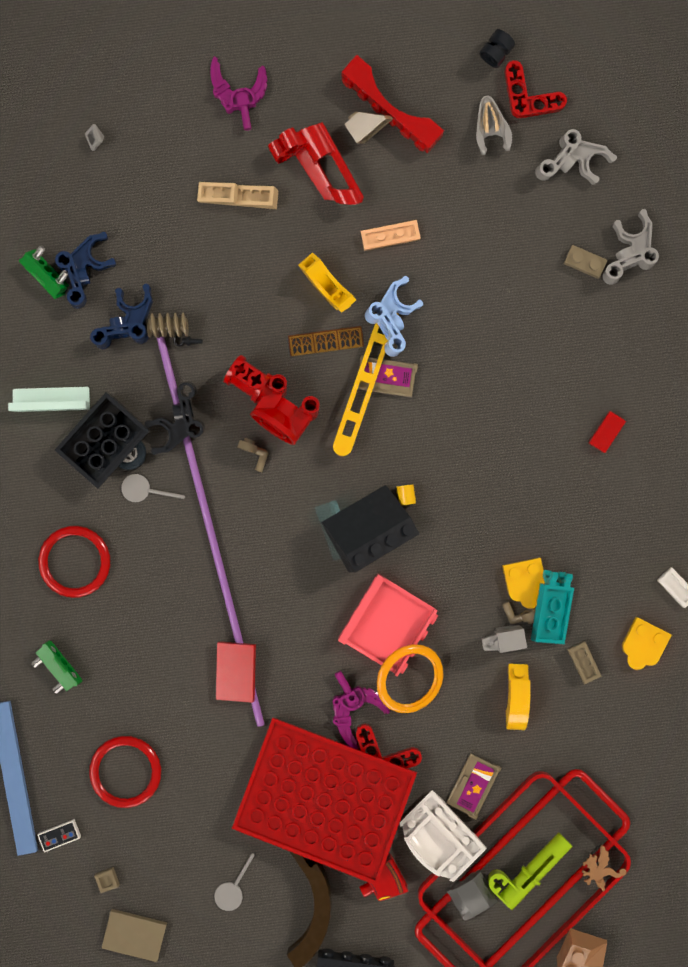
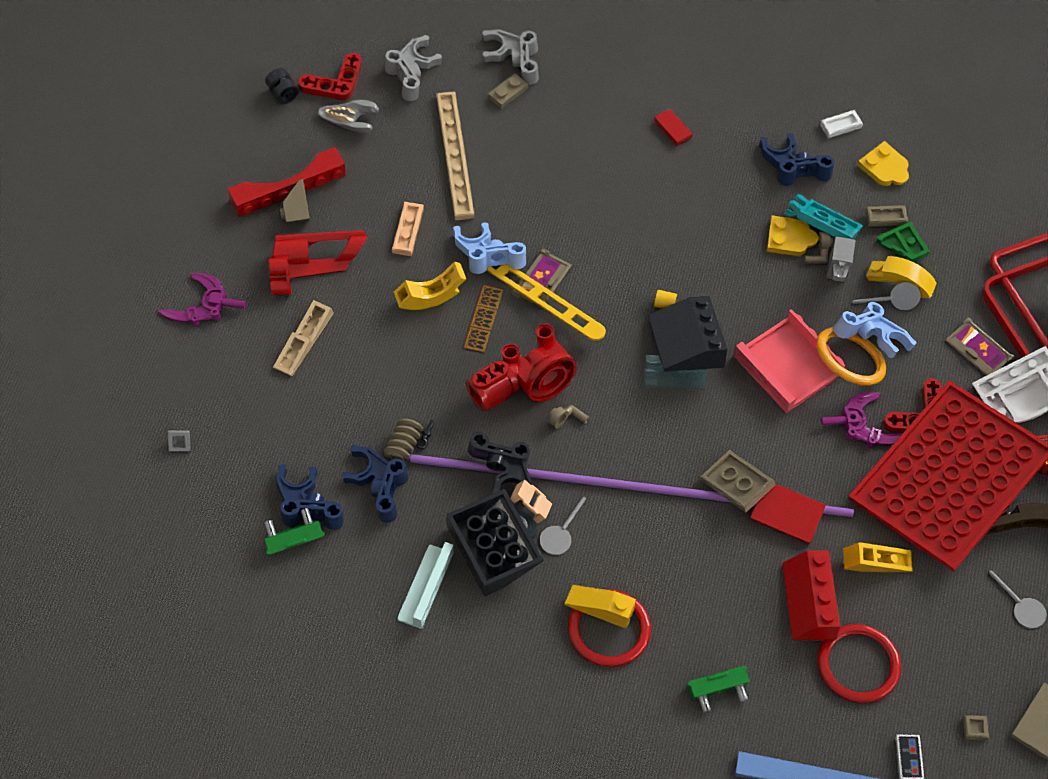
camera: 65 degrees left, 30 degrees down
(83, 549) = (602, 604): none -> yellow slope
(153, 447) = (524, 492): none -> light nougat piece
(162, 716) = (811, 596): none -> red slope
(220, 758) = (876, 558): none -> yellow slope
(245, 621) = (737, 481): none -> dark tan tile
(454, 686) = (873, 323): none -> light blue piece
(490, 242) = (455, 156): none -> tan tile
(496, 702) = (903, 296): none -> light grey piece
(560, 688) = (905, 242): none -> green wing
(607, 560) = (798, 165): none -> dark blue piece

